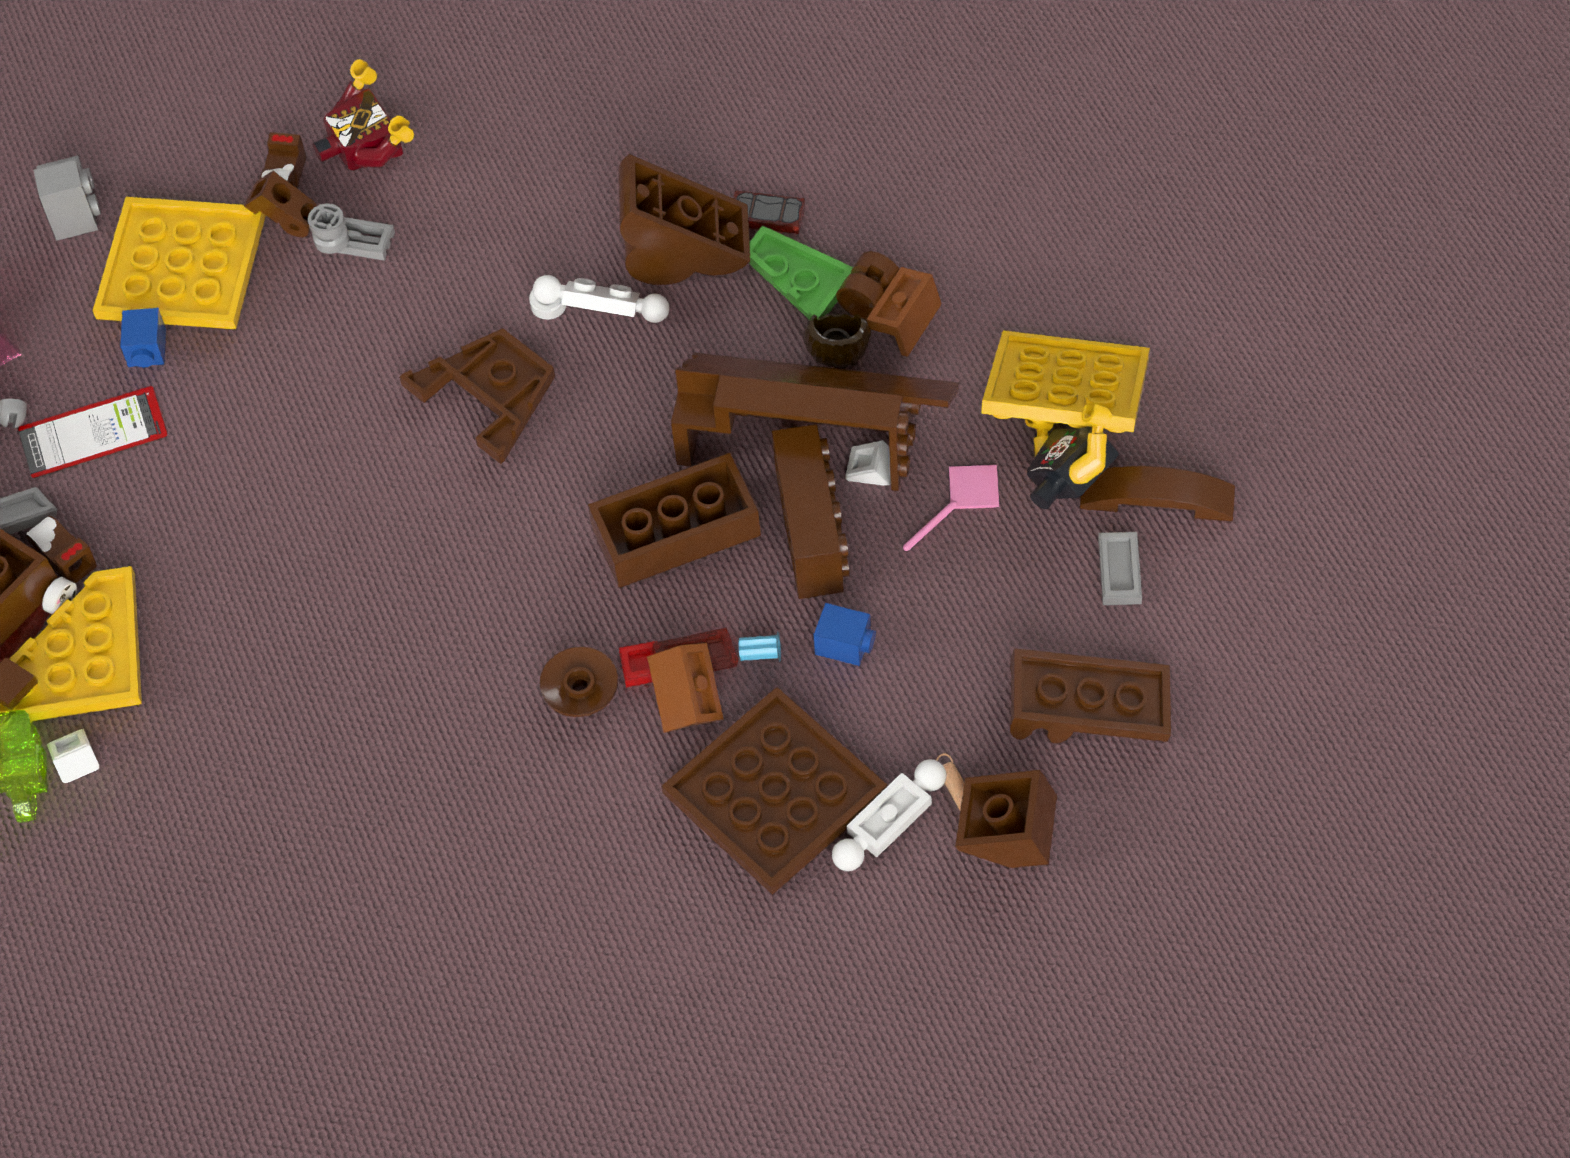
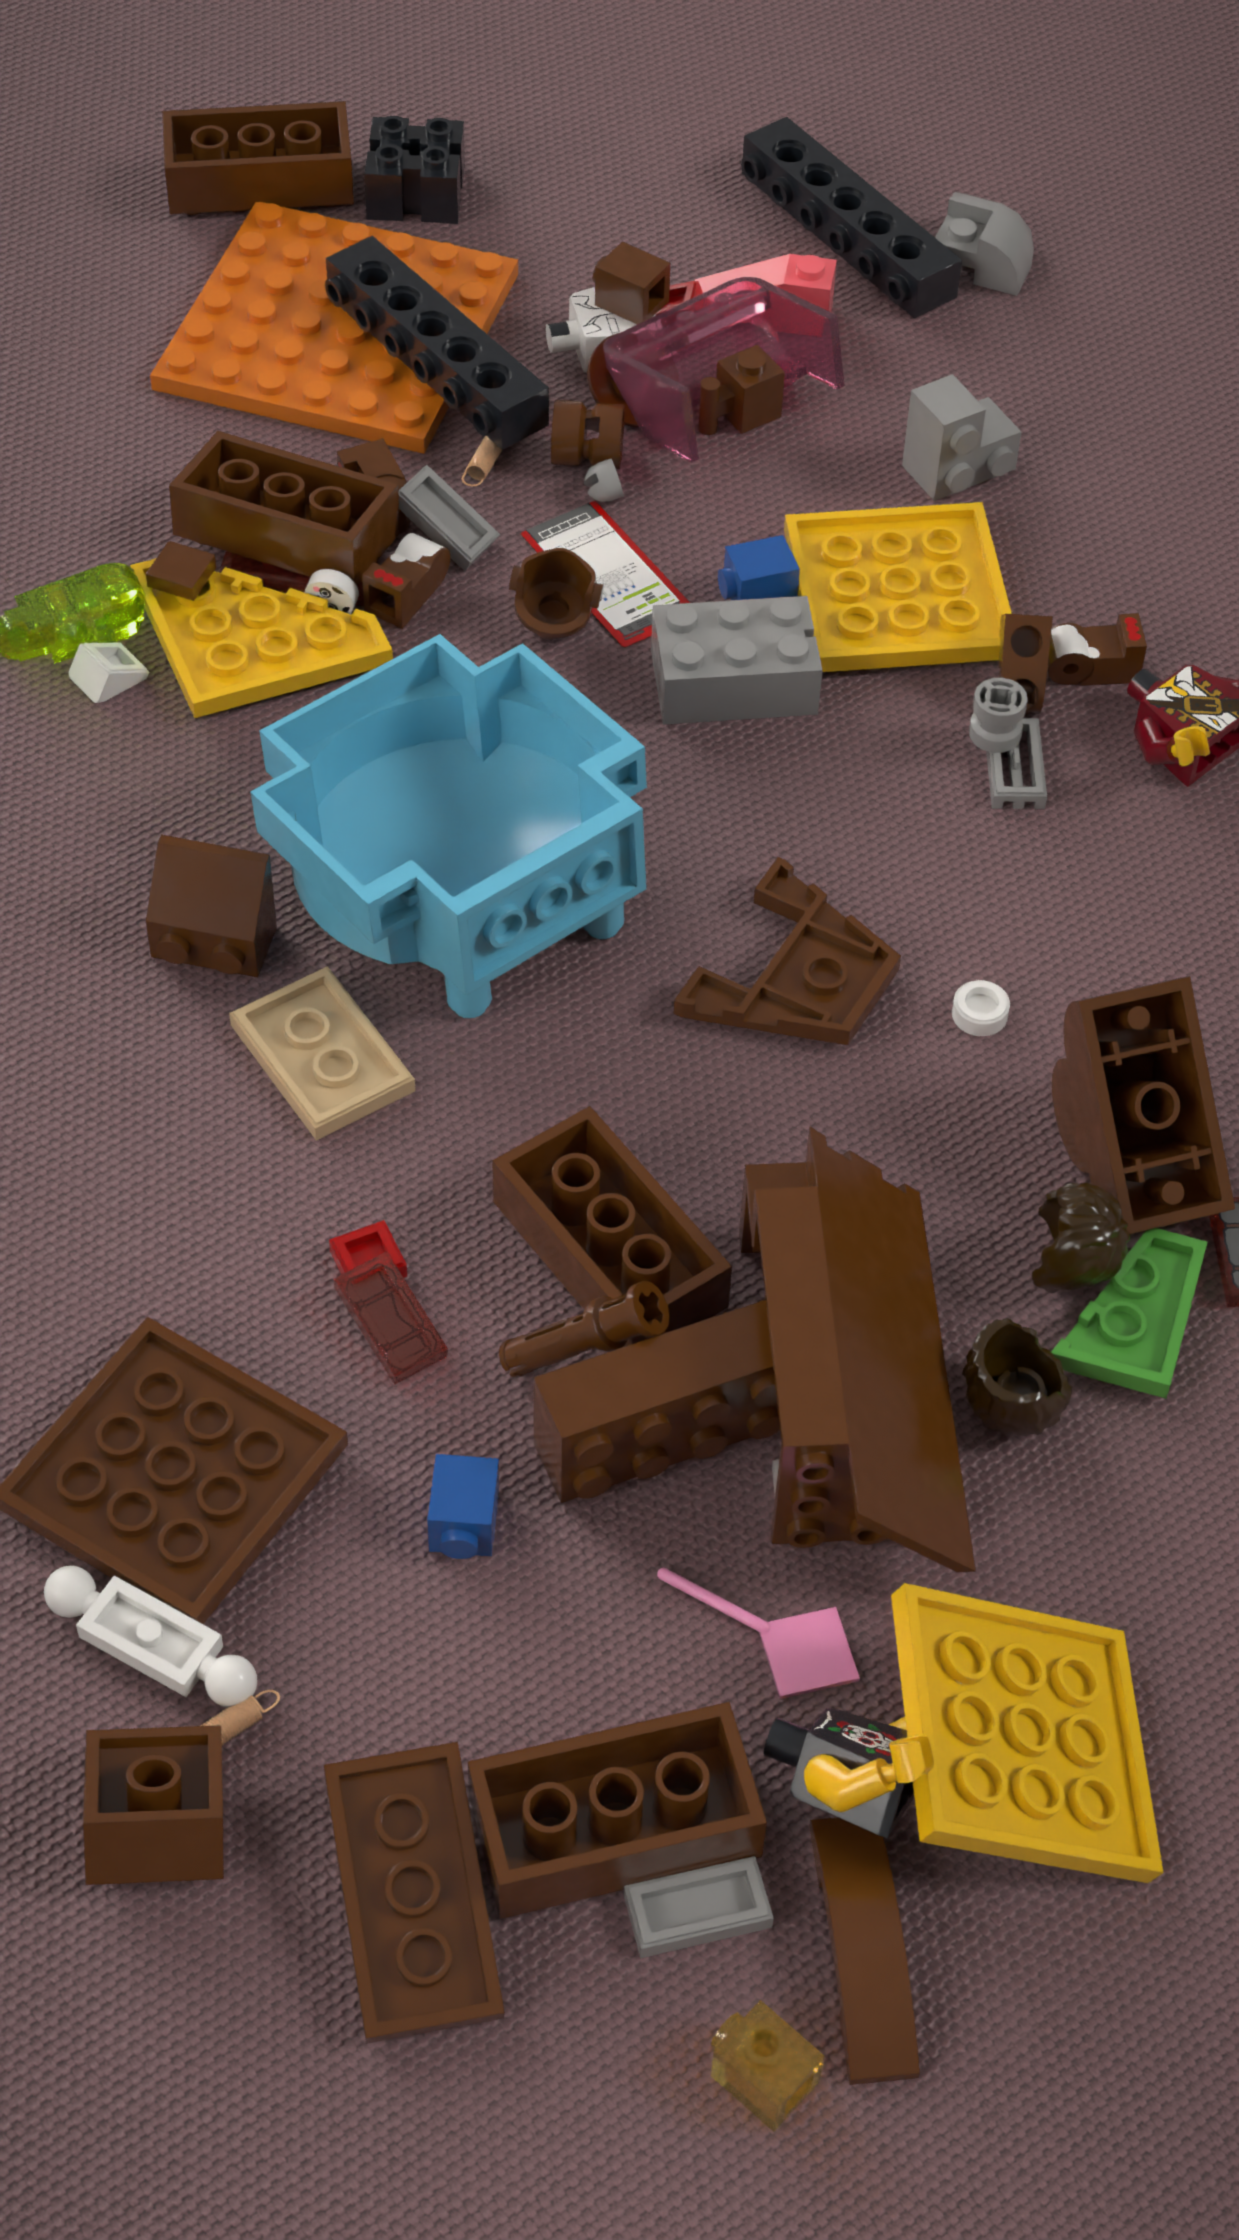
camera: 70 degrees right, 5 degrees down
(123, 454) = (555, 593): none -> reddish brown cap
(217, 366) = (735, 660): none -> light grey piece
(330, 529) = (456, 813): none -> medium azure windscreen
(341, 703) = (211, 906): none -> reddish brown slope
(468, 666) = (322, 1053): none -> tan tile
(575, 668) = (305, 1162): reddish brown dish -> none
(615, 300) = (994, 1063): white plate -> none
(685, 687) = (319, 1314): dark orange panel -> none
(749, 282) = (1086, 1235): none -> dark brown hair
(757, 523) = (603, 1325): none -> reddish brown pin
(760, 647) = (422, 1404): medium azure piece -> none
(866, 283) = (1117, 1404): reddish brown wheel -> none
(906, 308) = (1110, 1475): dark orange panel -> none
(1064, 581) = (615, 1809): none -> reddish brown brick
(1222, 549) = (765, 2064): none -> clear yellow brick

